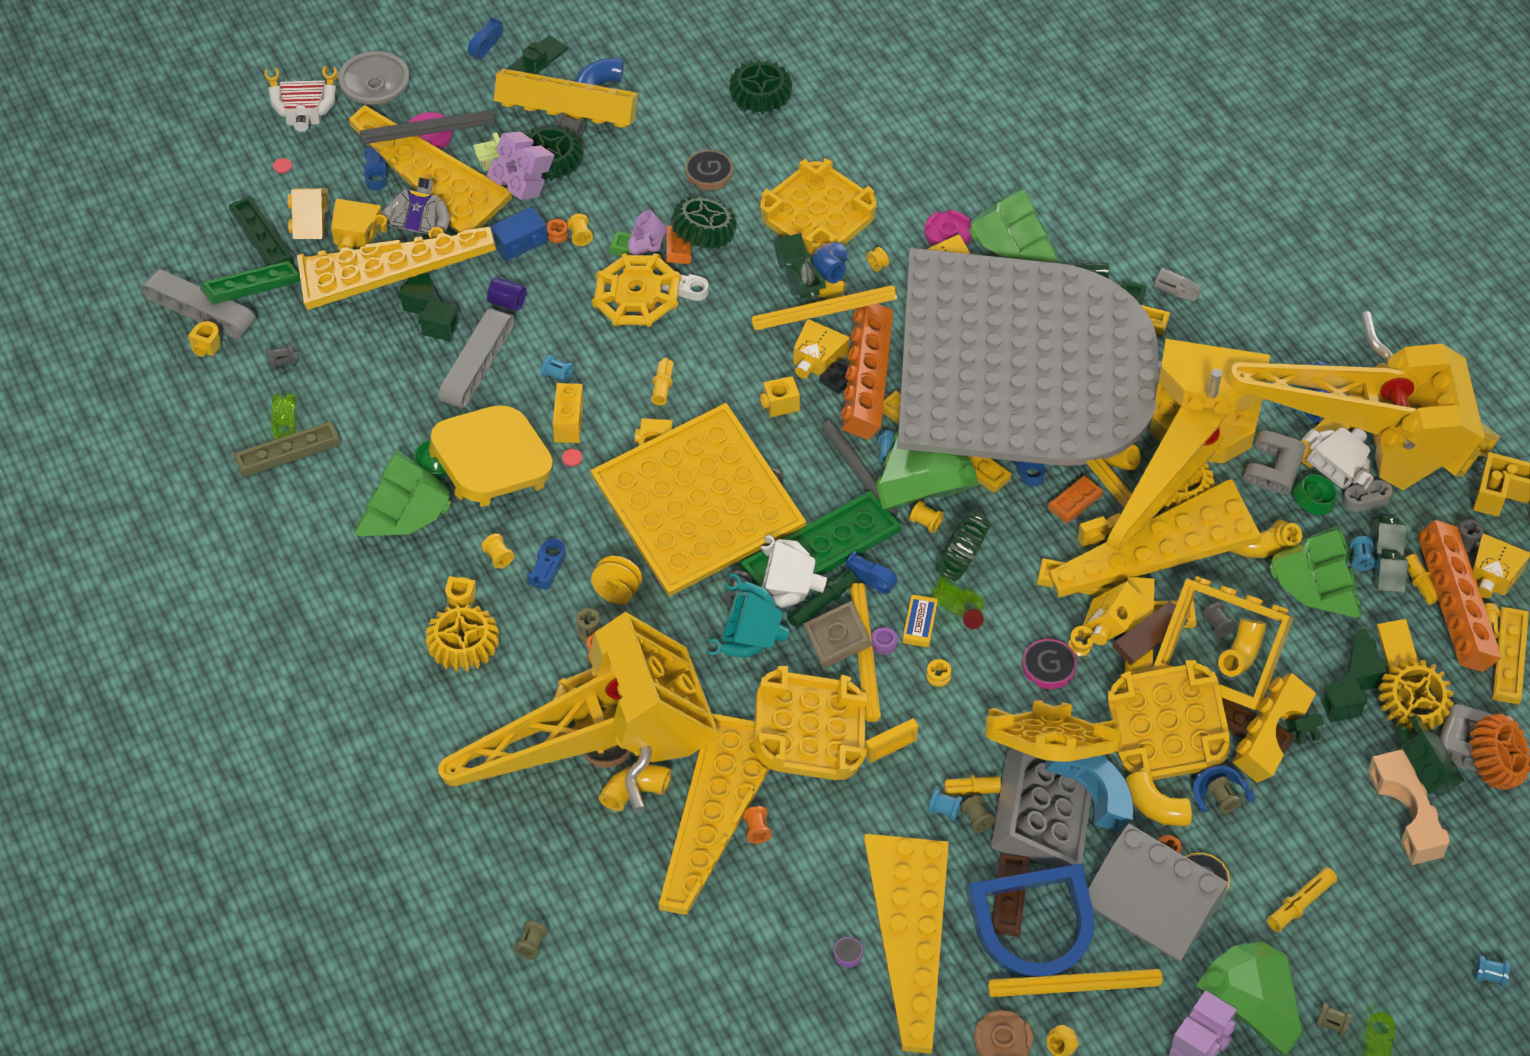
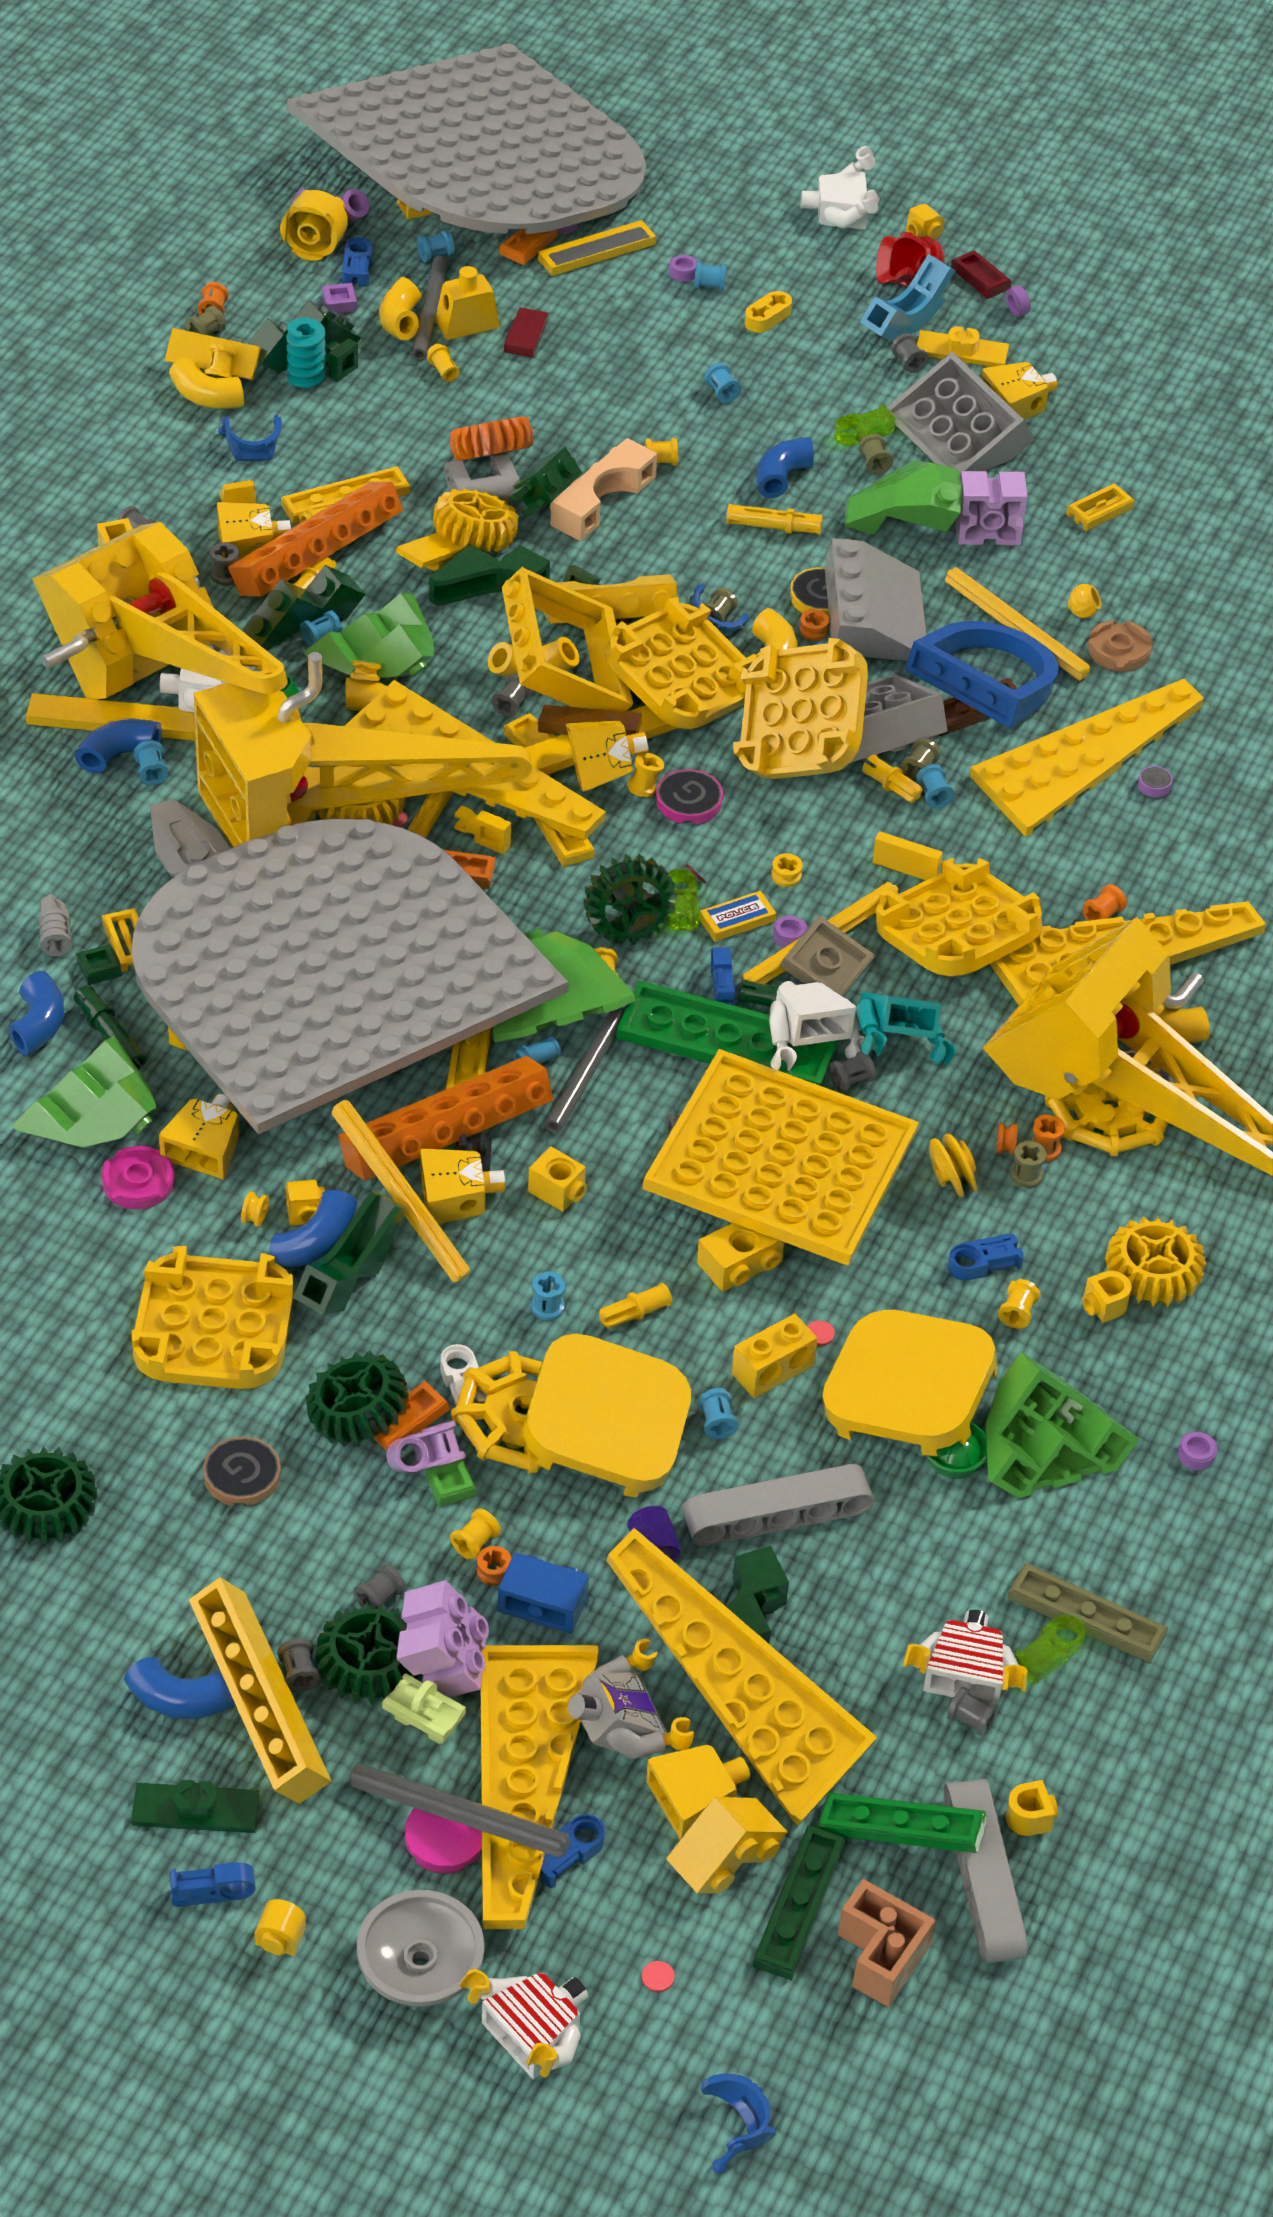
camera: 130 degrees left, 5 degrees down
(183, 154) = (752, 2107): none -> blue helmet
(201, 239) = (891, 1936): none -> nougat brick
(307, 370) = (967, 1657): none -> torso
(328, 570) = (1197, 1451): none -> medium lavender tile
(436, 45) = (280, 1927): none -> yellow plate
(583, 173) = (380, 1587): none -> dark grey bush
(595, 312) = (607, 1412): none -> yellow tile
(699, 348) = (544, 1294): none -> dark azure bush
(864, 278) = (302, 1200): none -> yellow plate
(1105, 245) = (43, 1016): none -> blue cylinder
(1365, 942) = (779, 462): none -> blue cylinder
(1430, 873) = (666, 450): none -> yellow bush

